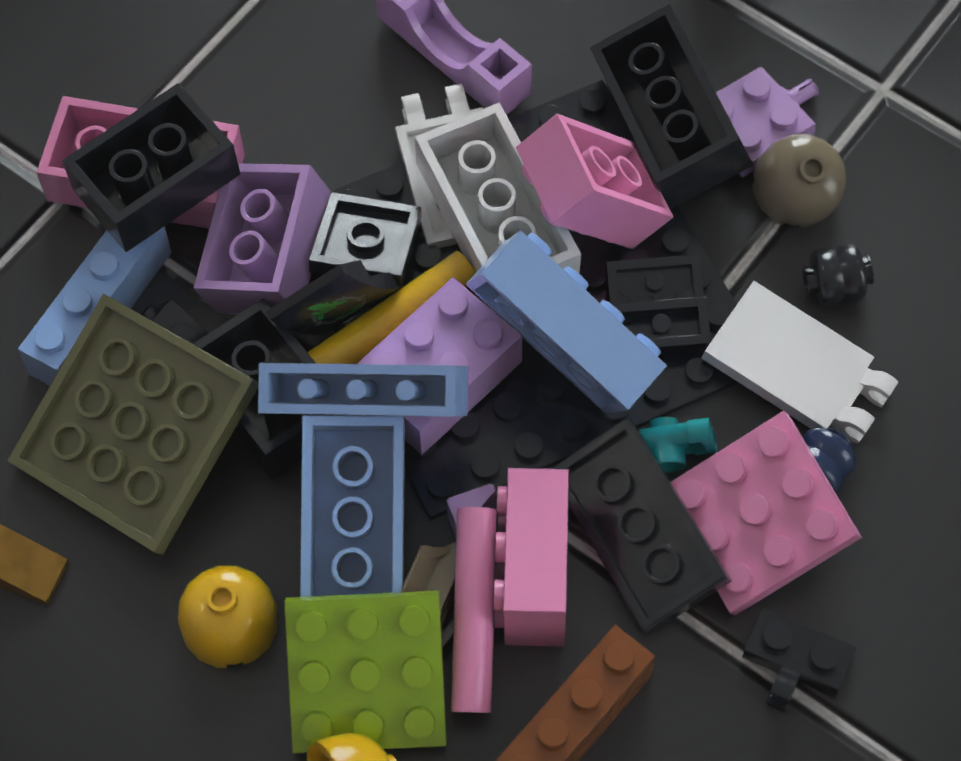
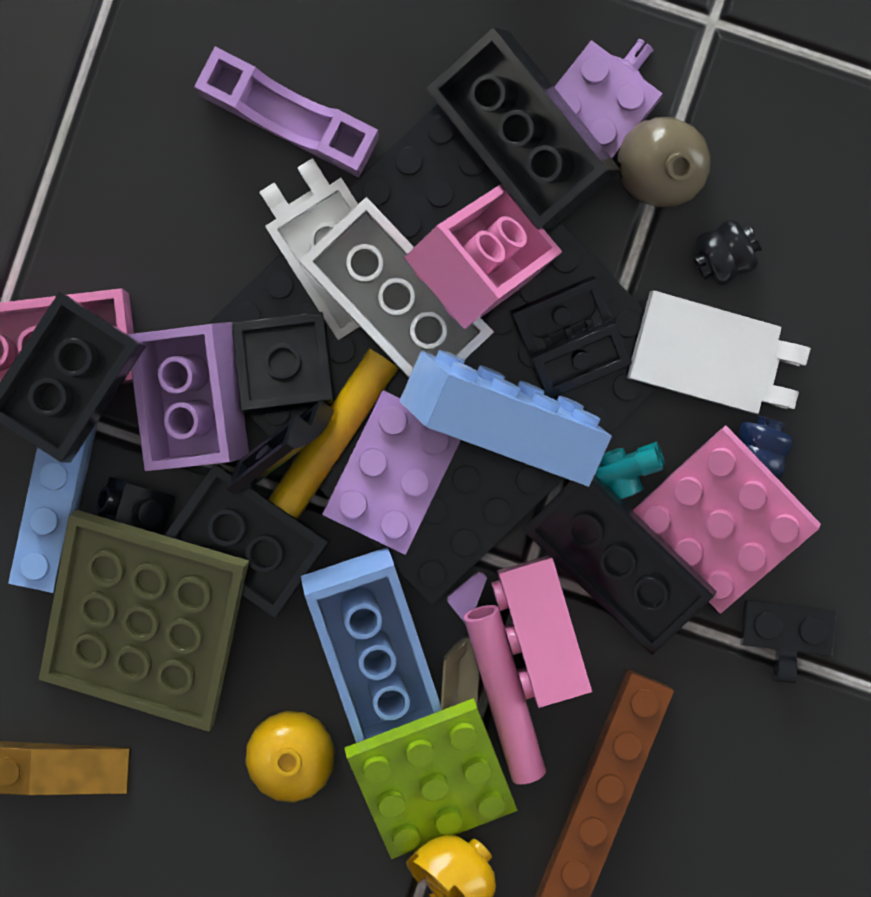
camera: 20 degrees left, 25 degrees up
(363, 389) = (348, 549): light blue brick -> none

